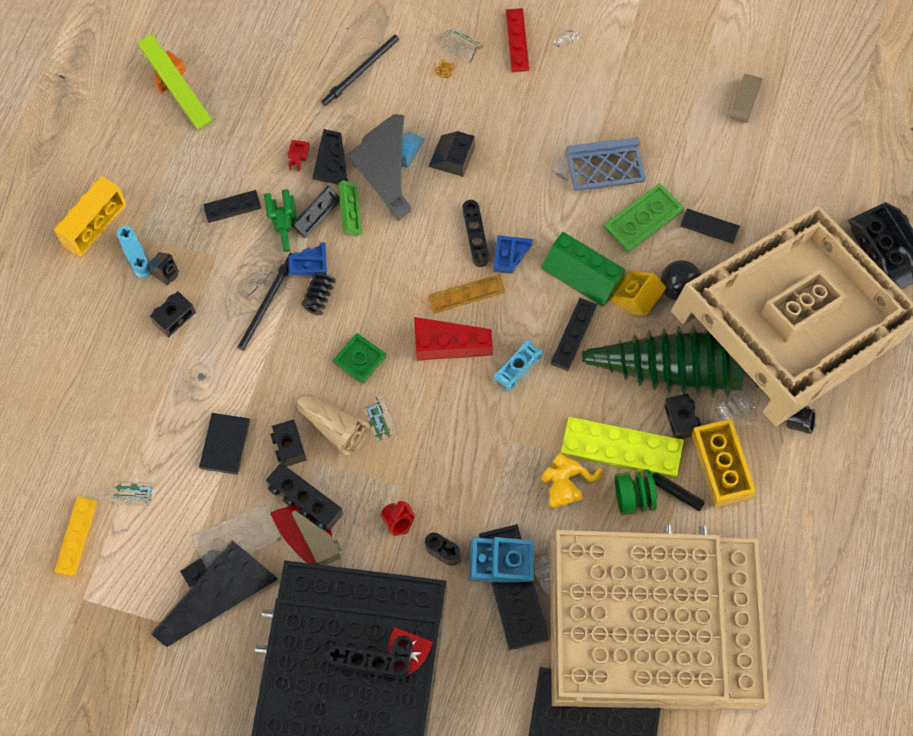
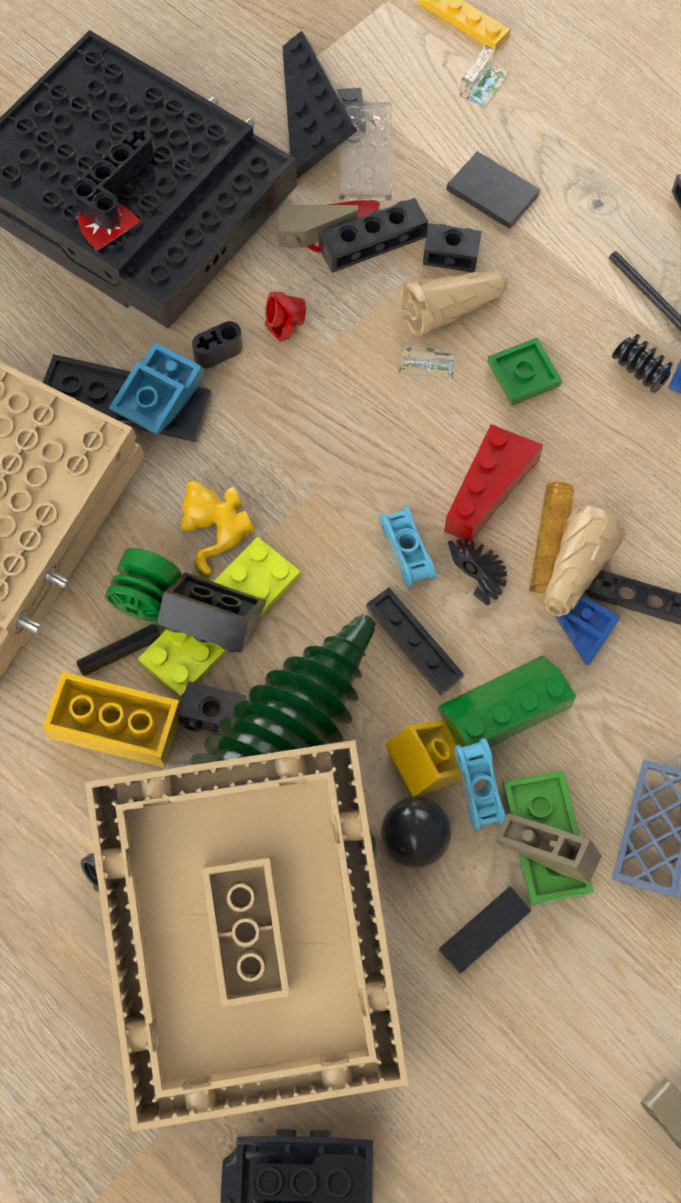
camera: 115 degrees right, 0 degrees up
(476, 265) = (583, 551): none -> tan cone
(505, 321) = (481, 568): none -> black hair
(628, 442) = (210, 612): none -> black slope
(640, 257) = (476, 764): none -> medium azure piece
(653, 209) = (550, 847): none -> dark tan slope

